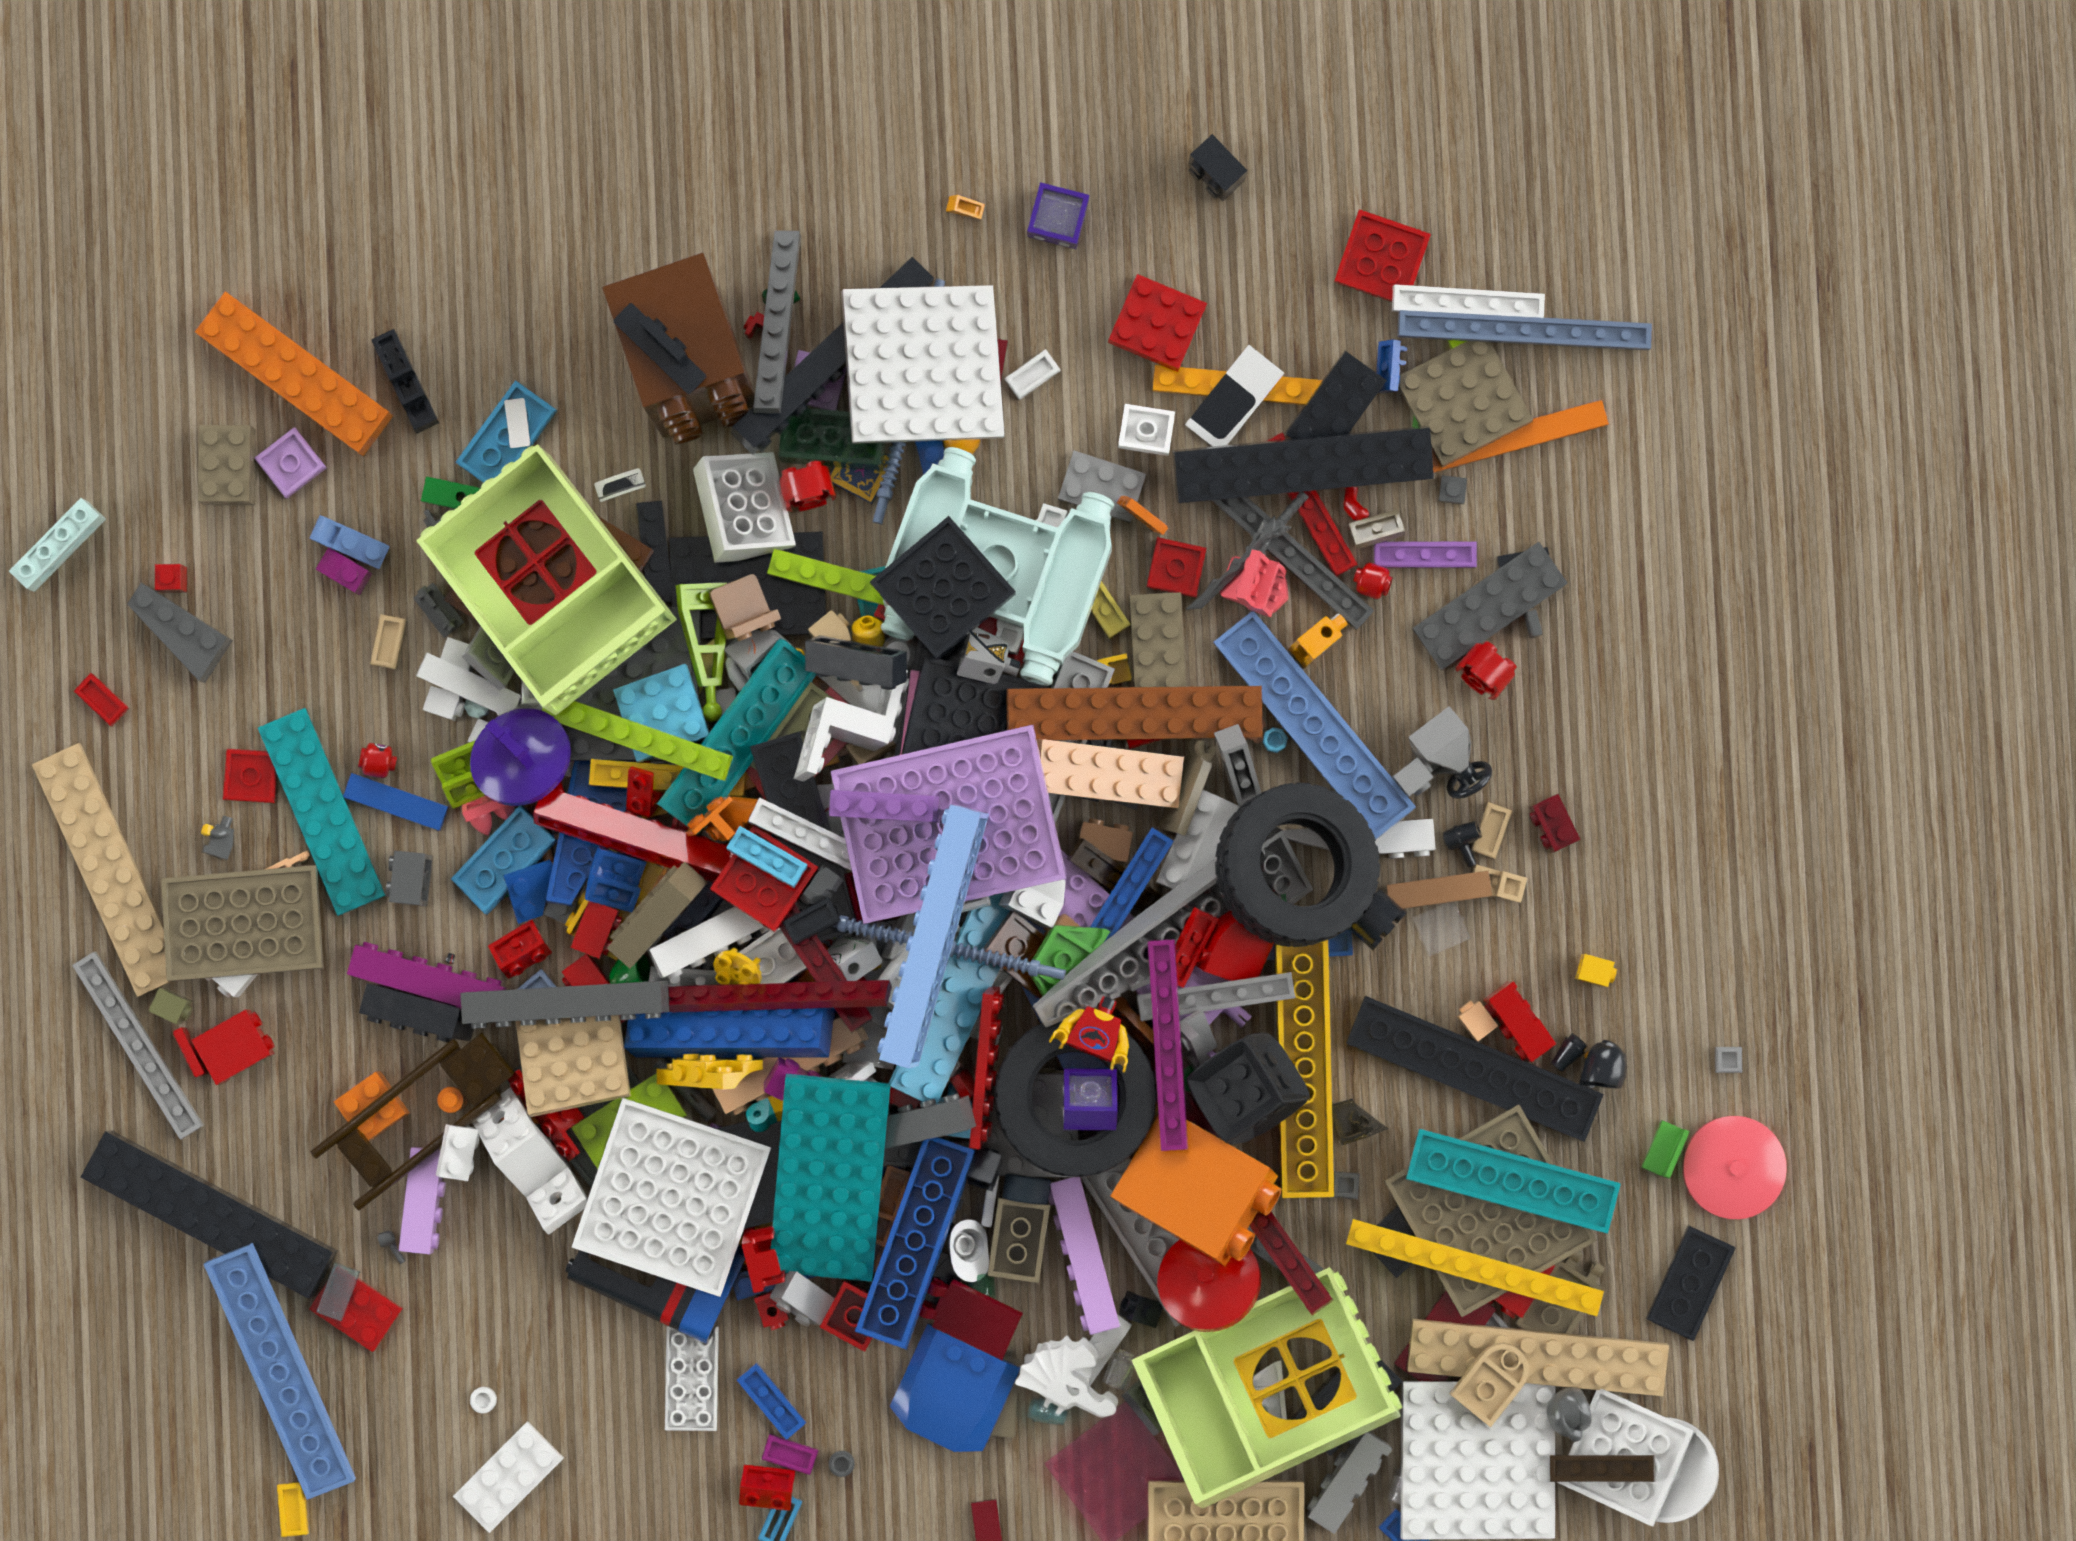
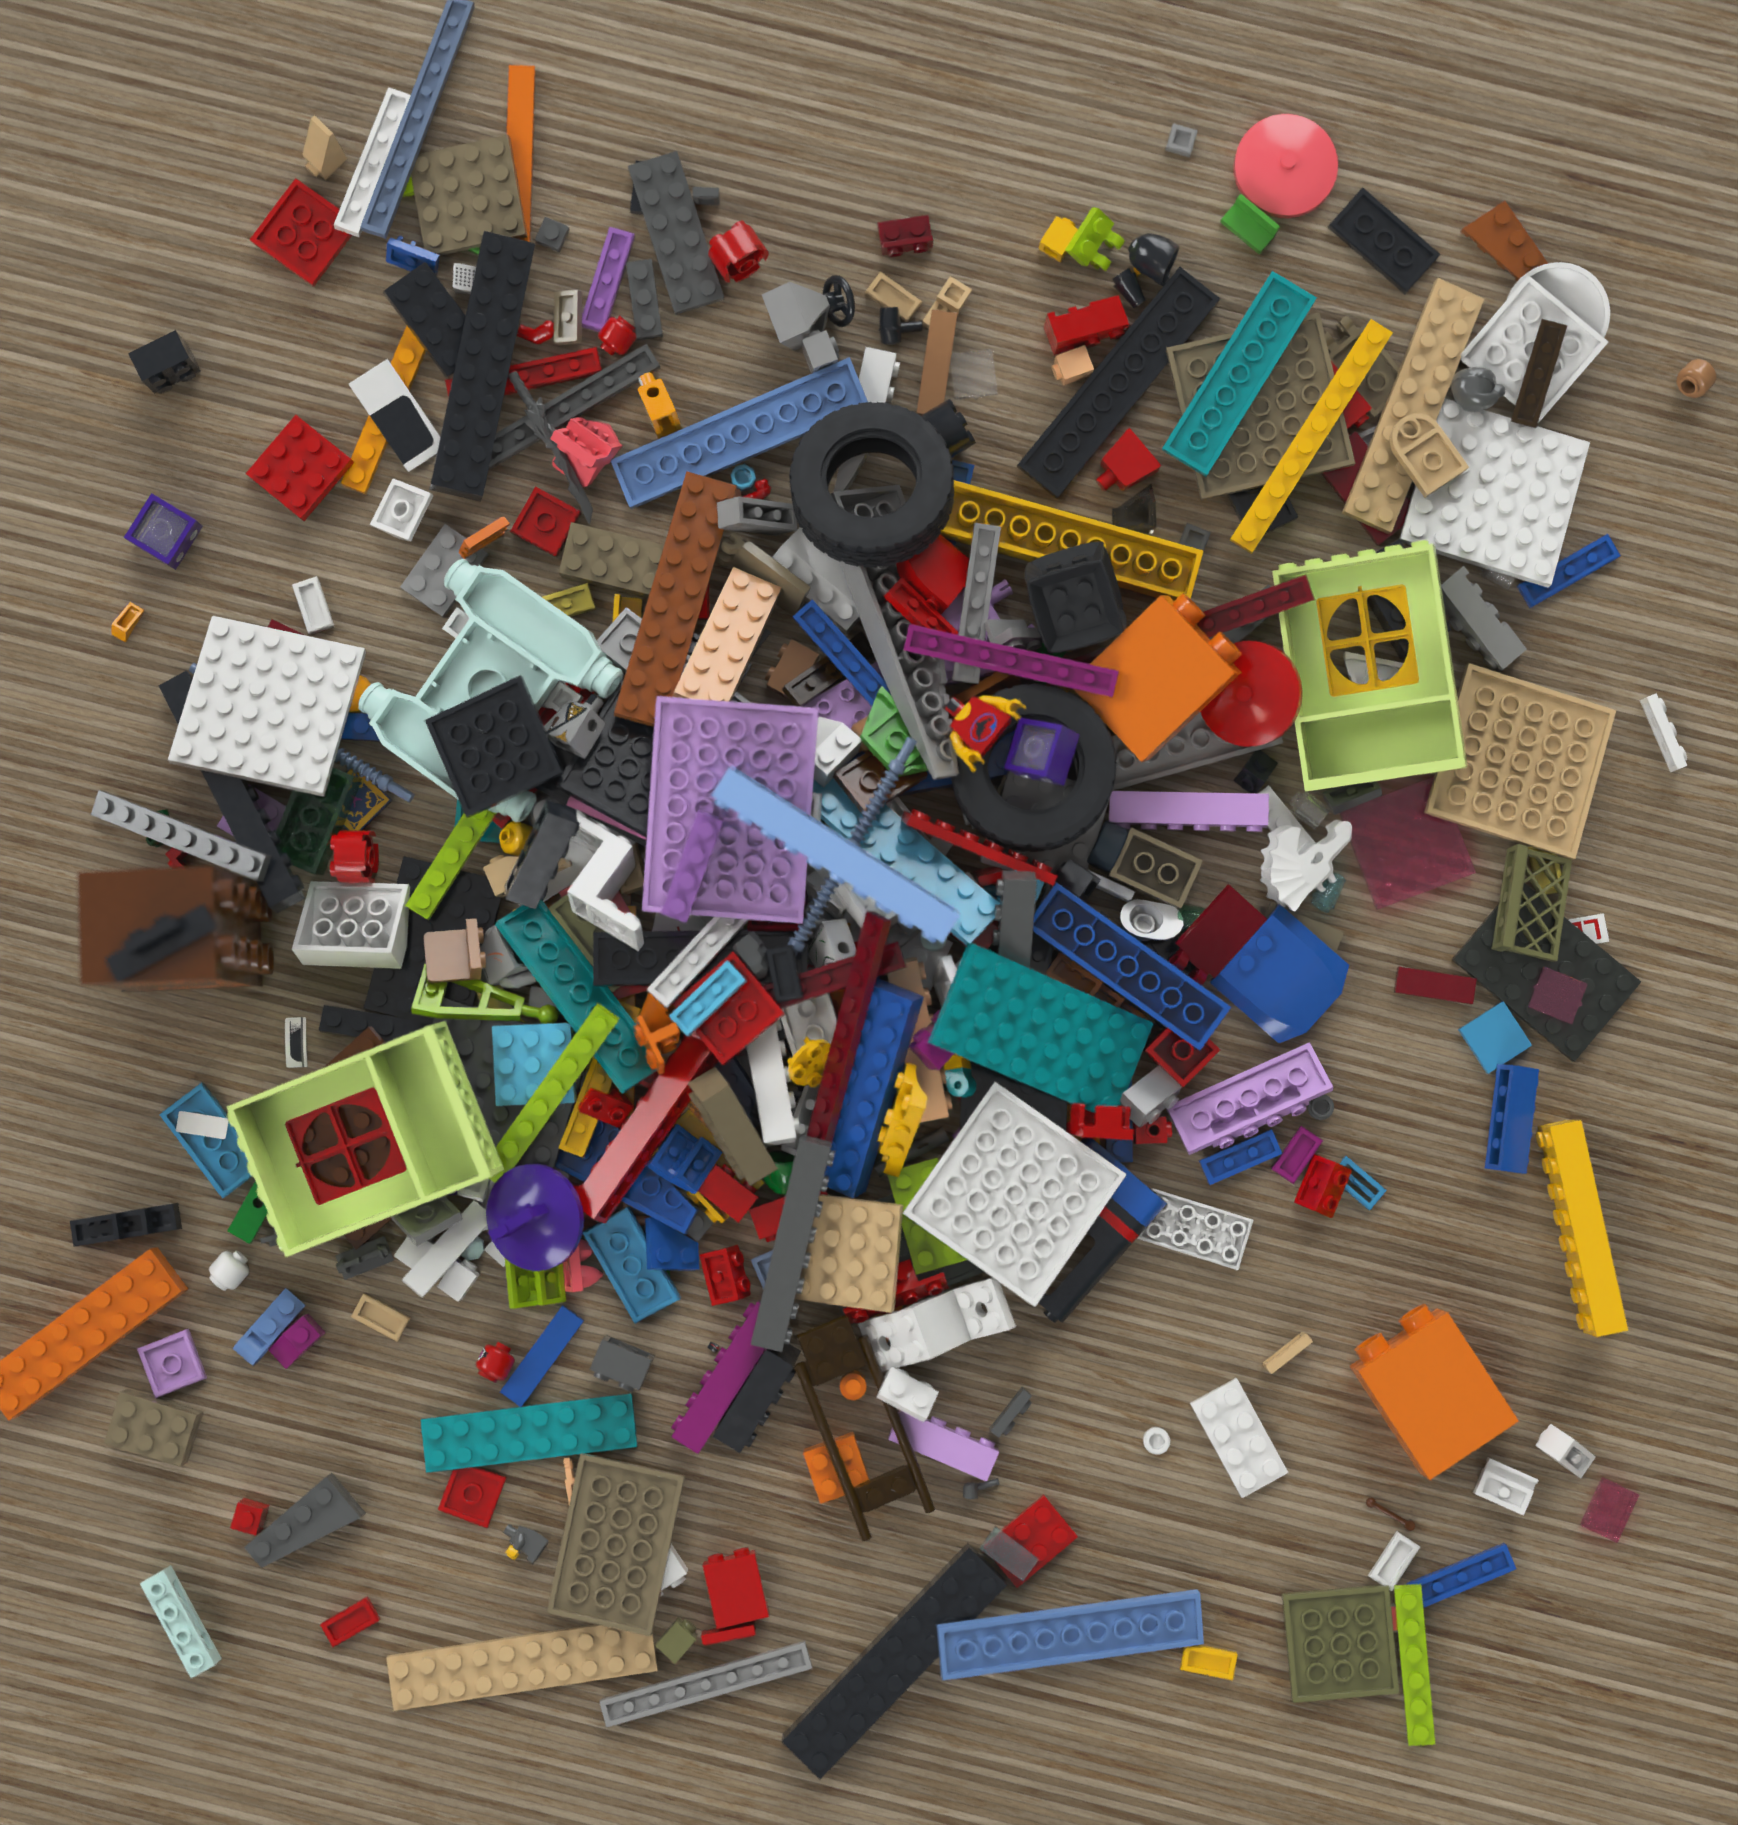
camera: 75 degrees left, 0 degrees up
(390, 489) = (229, 1270): none -> white head
(459, 1251) = (1005, 1422): none -> dark grey plate
(600, 1499) = (1287, 1352): none -> tan tile
(827, 1395) = (1250, 1100): none -> lavender plate
(1267, 762) = (762, 491): none -> red arm
(1384, 419) = (463, 278): none -> white slope
(1398, 1099) = (1127, 463): none -> red torso
(1417, 595) = (644, 299): none -> dark grey plate
(1461, 251) = (322, 150): none -> tan slope
(1605, 1000) = (1089, 237): none -> lime plate
(1726, 1401) = (1505, 241): none -> dark orange wing

